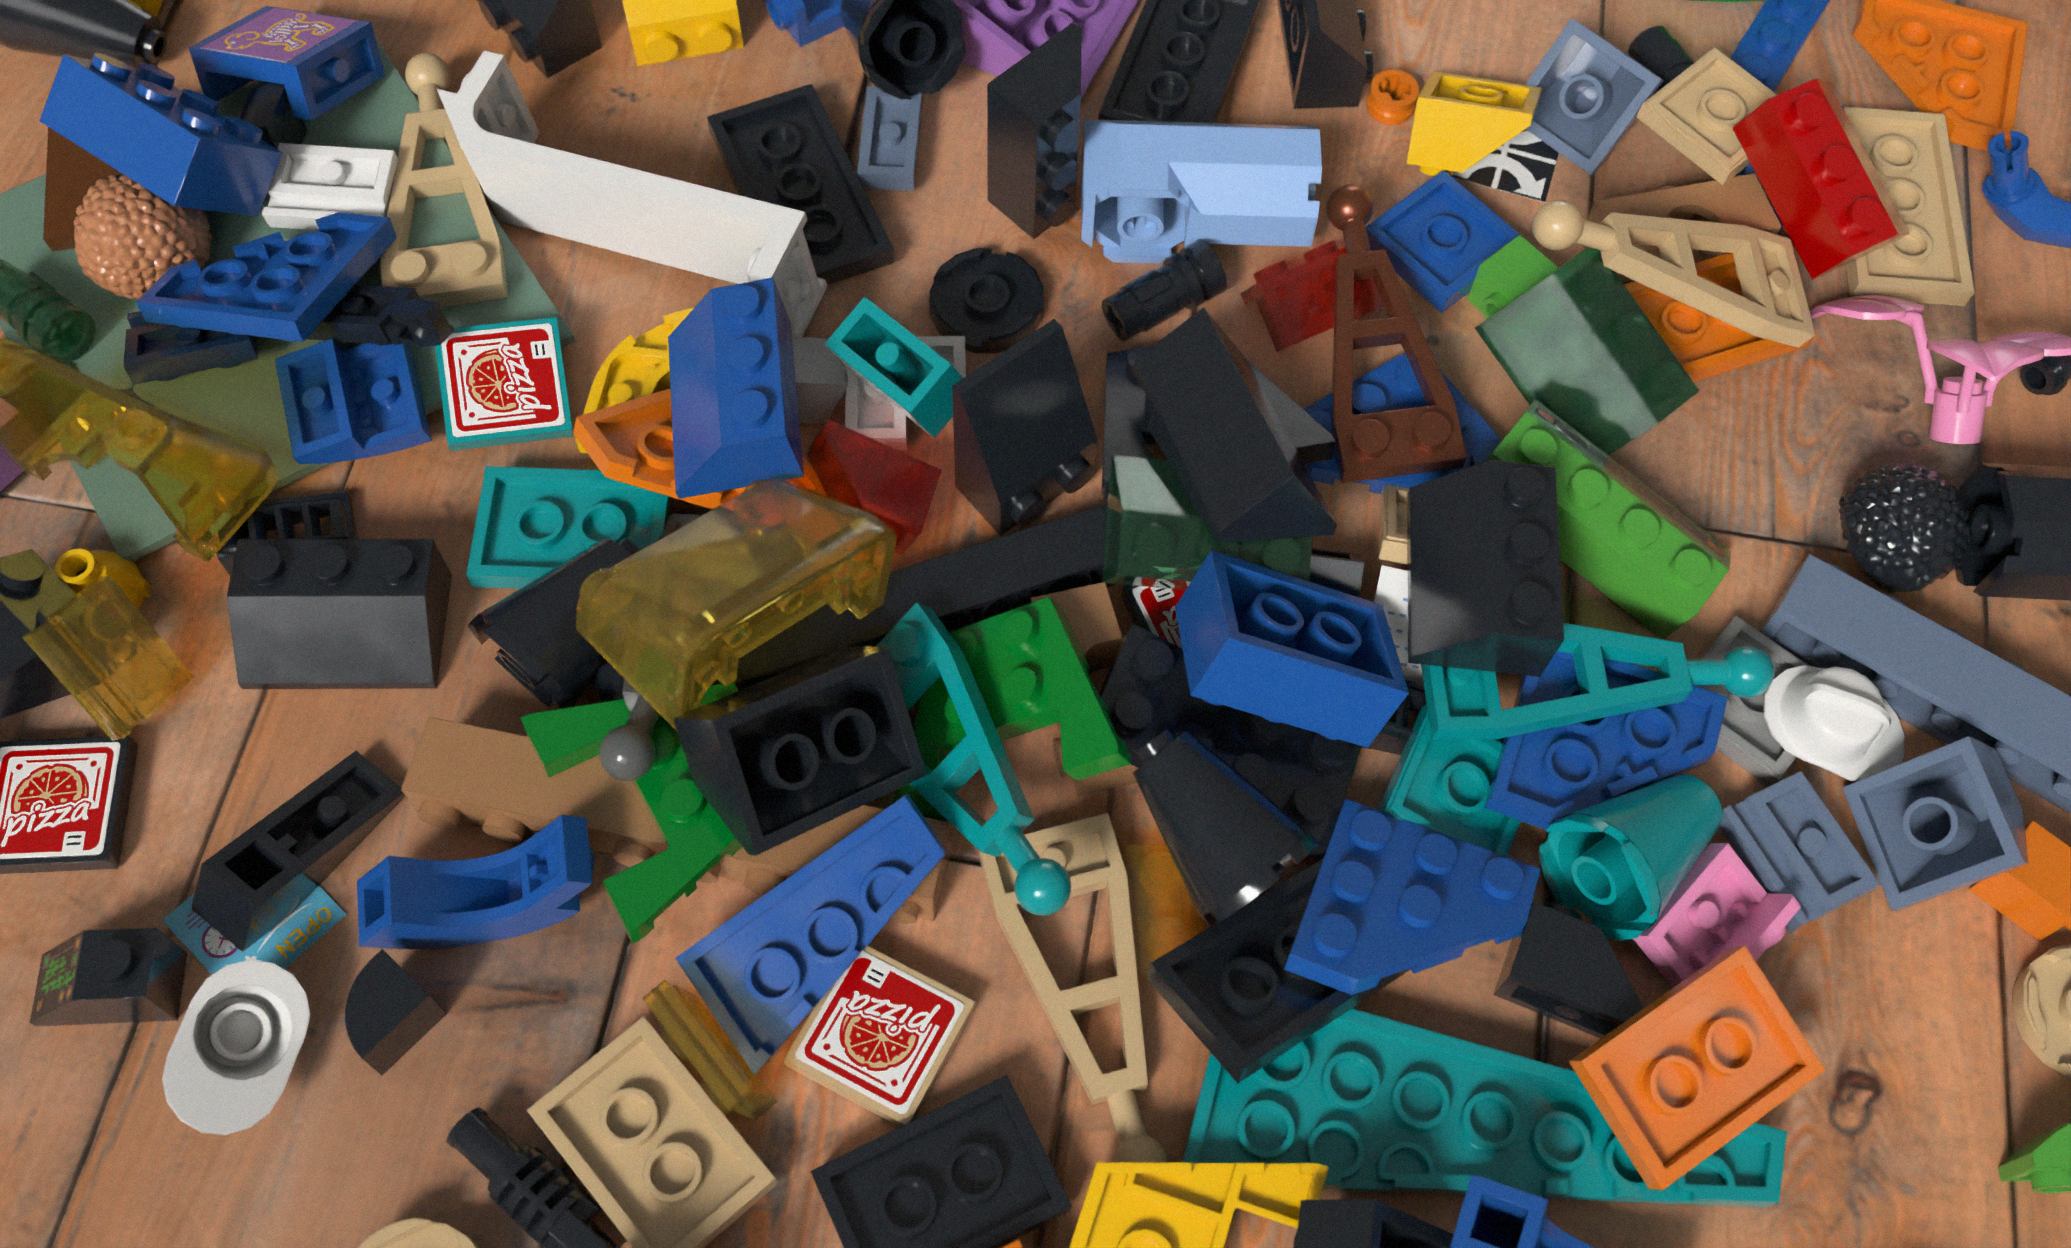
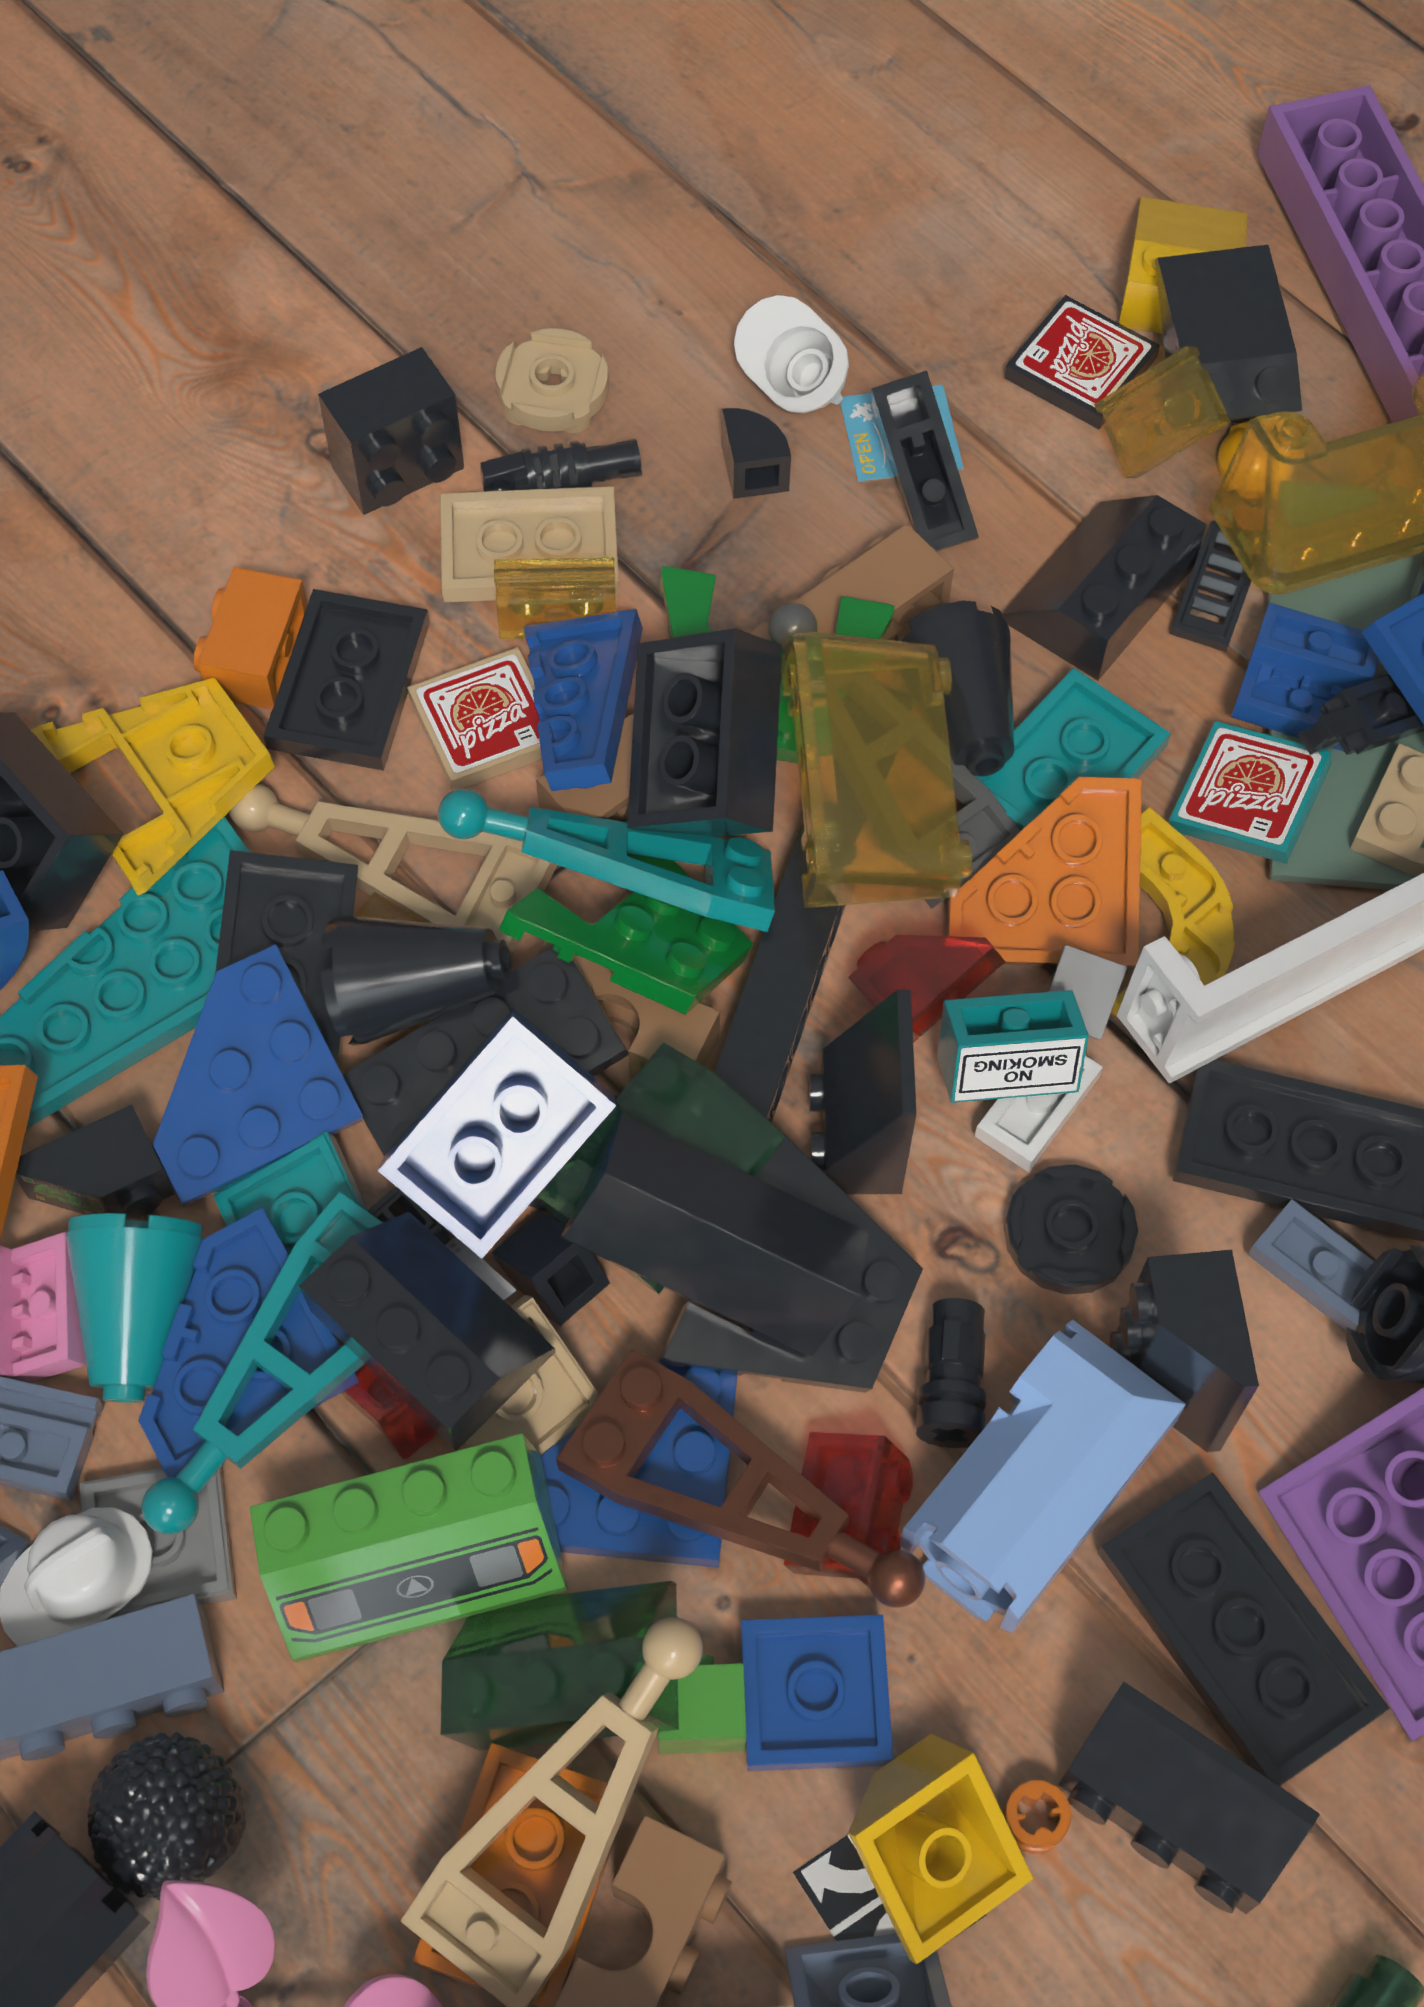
camera: 130 degrees right, 0 degrees up
(110, 979) = (907, 329): black slope -> none
(476, 899) = (796, 533): blue arch -> none
(734, 391) = (1063, 895): blue slope -> none

